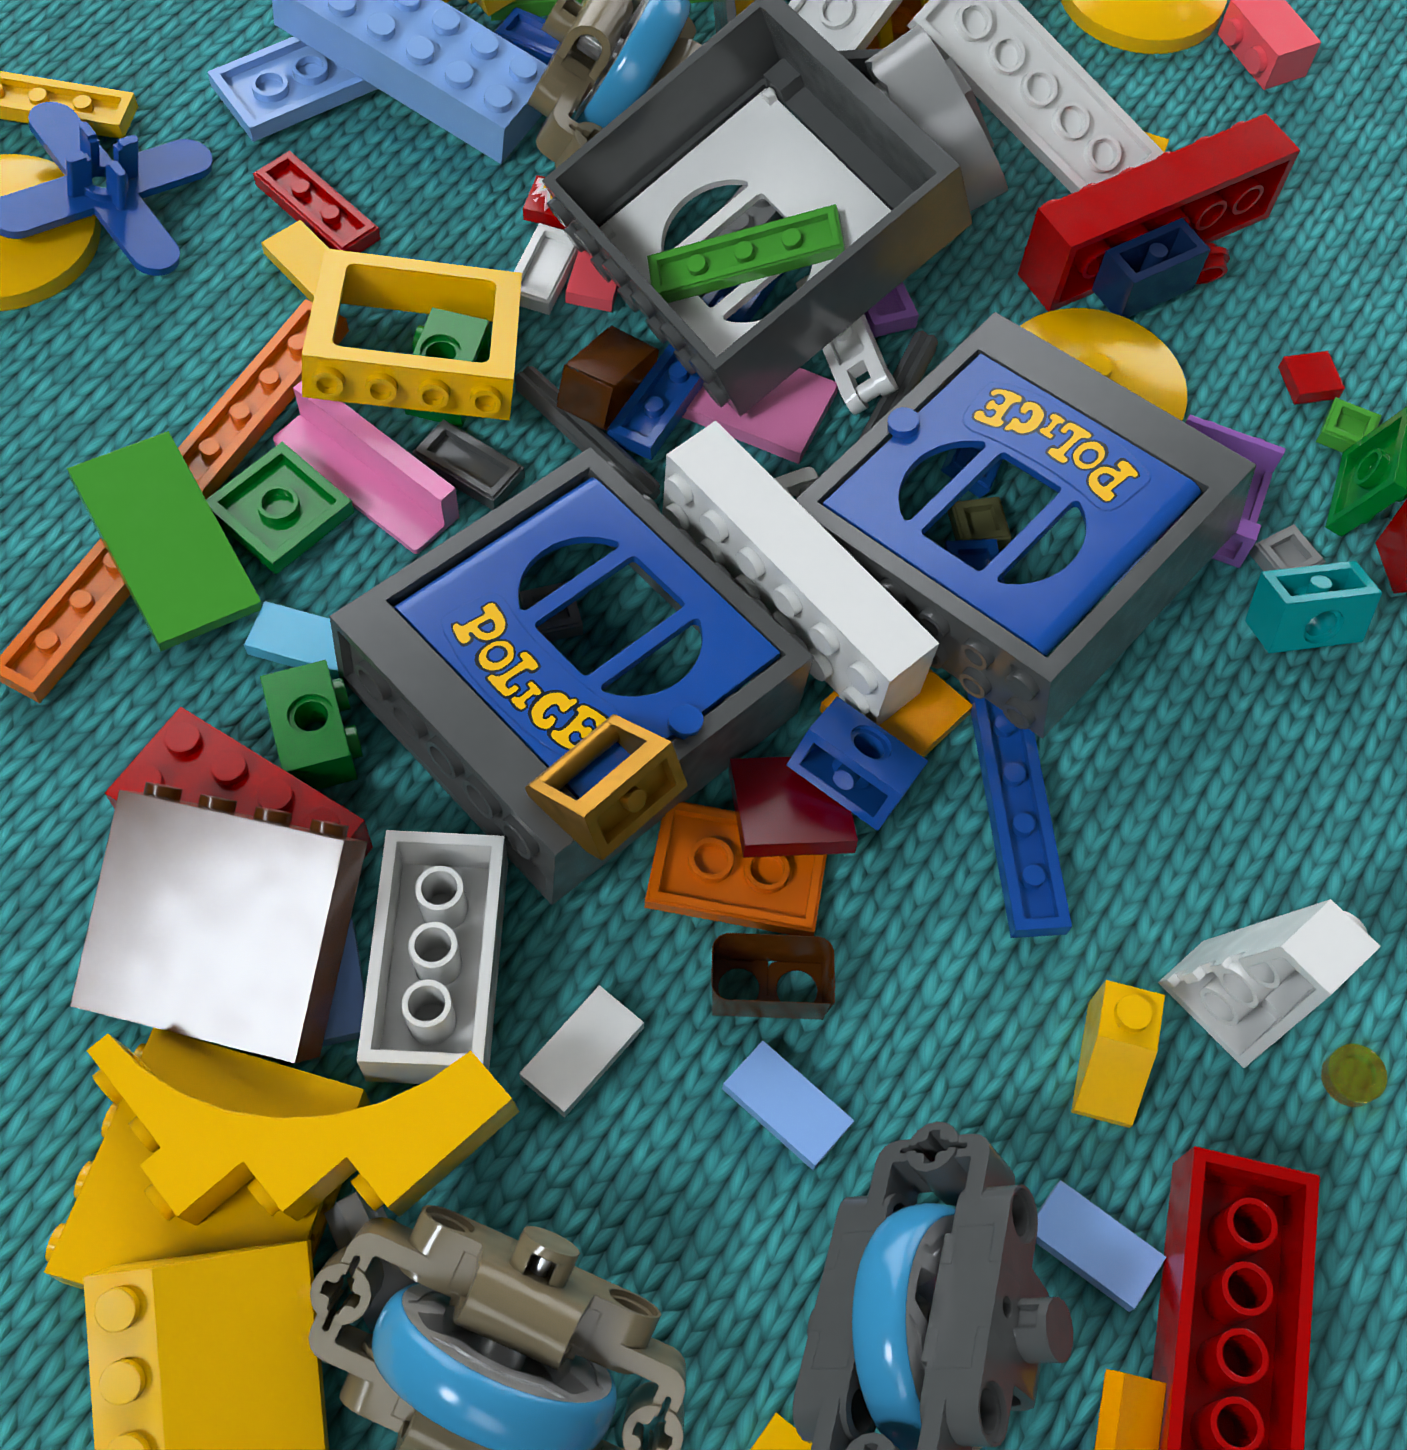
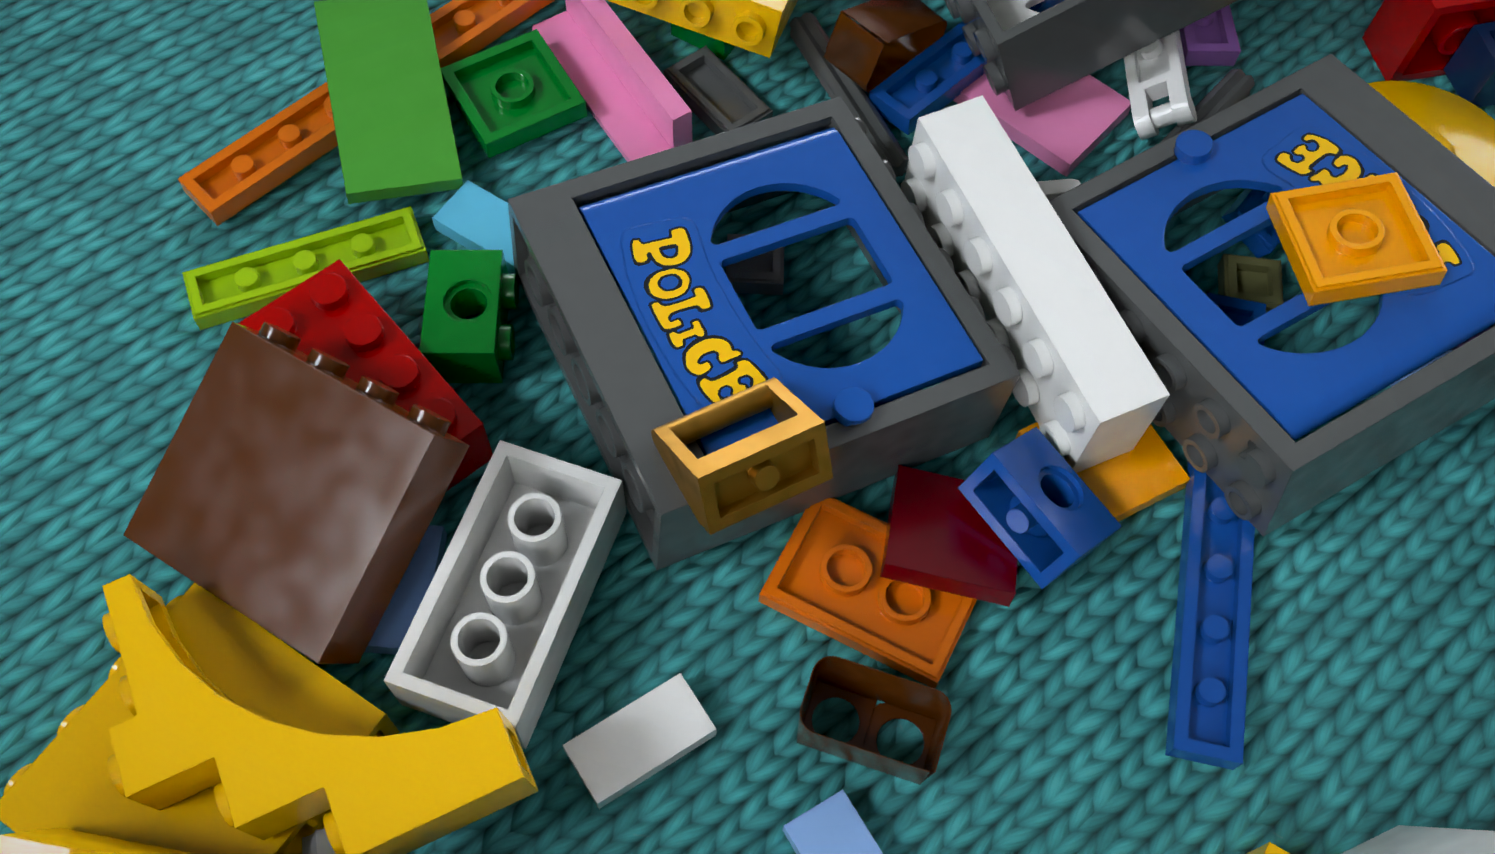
camera: 20 degrees right, 0 degrees up
(130, 723) = (255, 279): none -> lime tile
(1051, 474) = (1355, 239): none -> light orange tile

